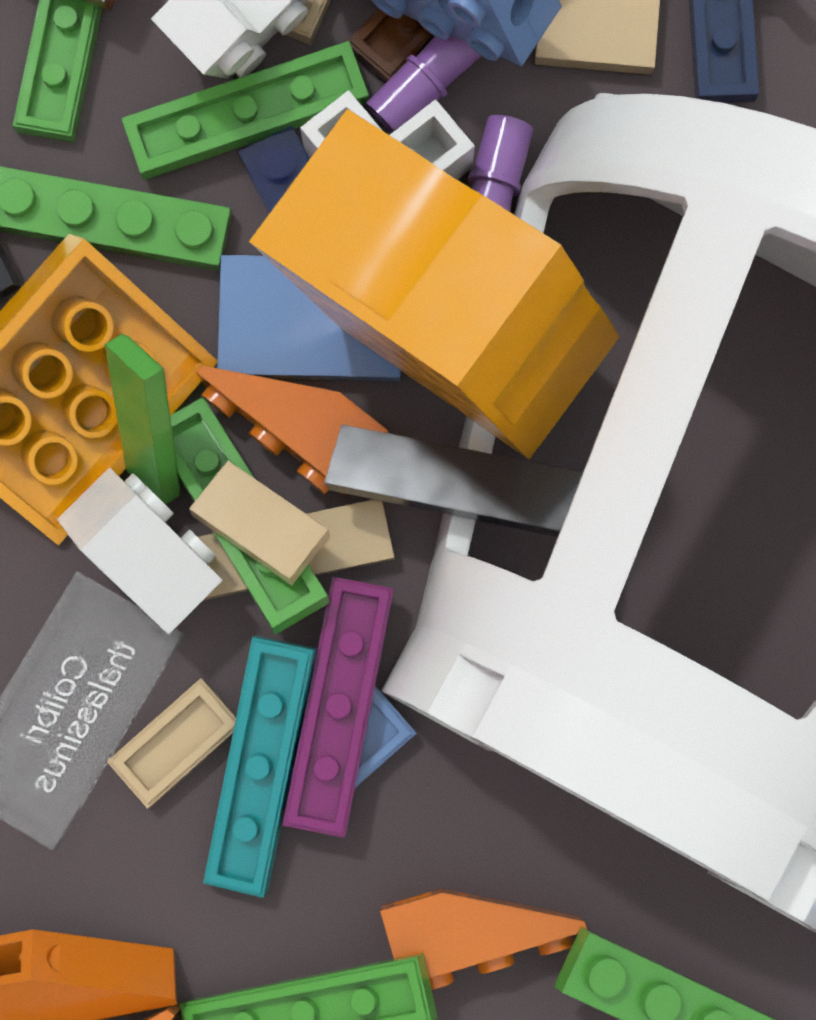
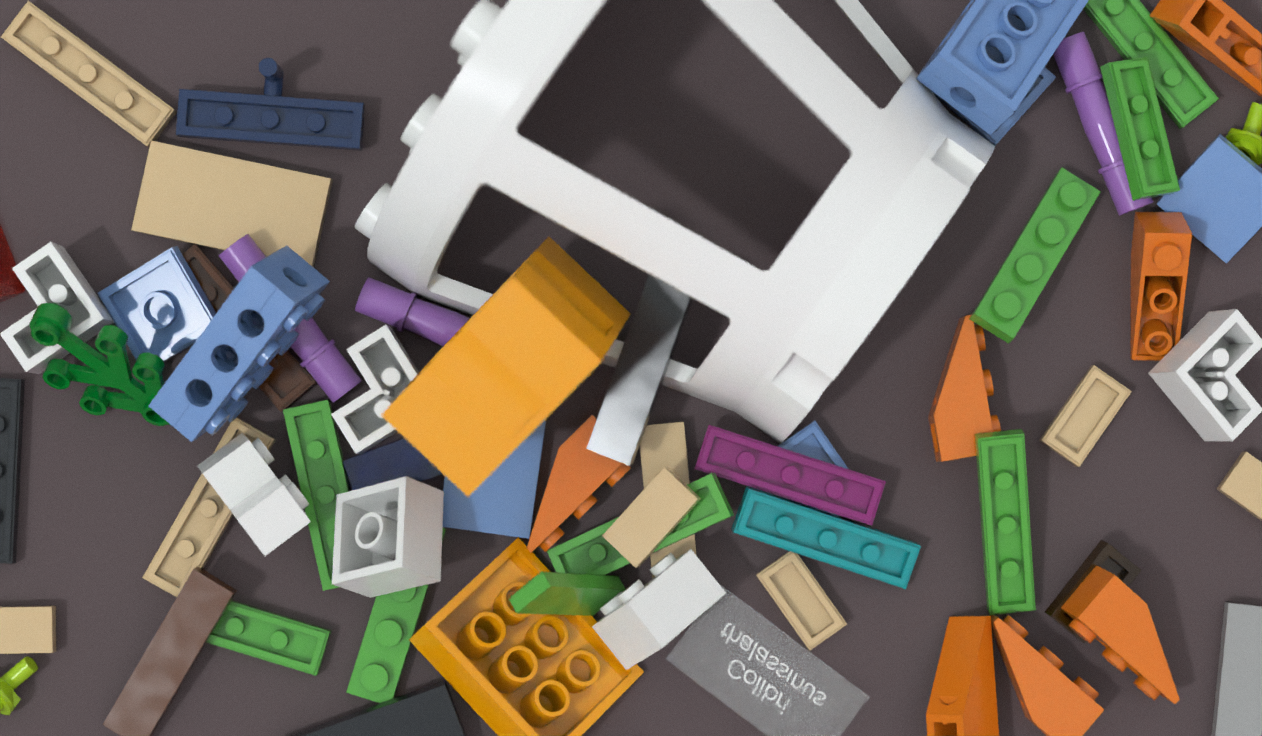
camera: 85 degrees left, 5 degrees up
(194, 181) = (388, 537): none -> white brick

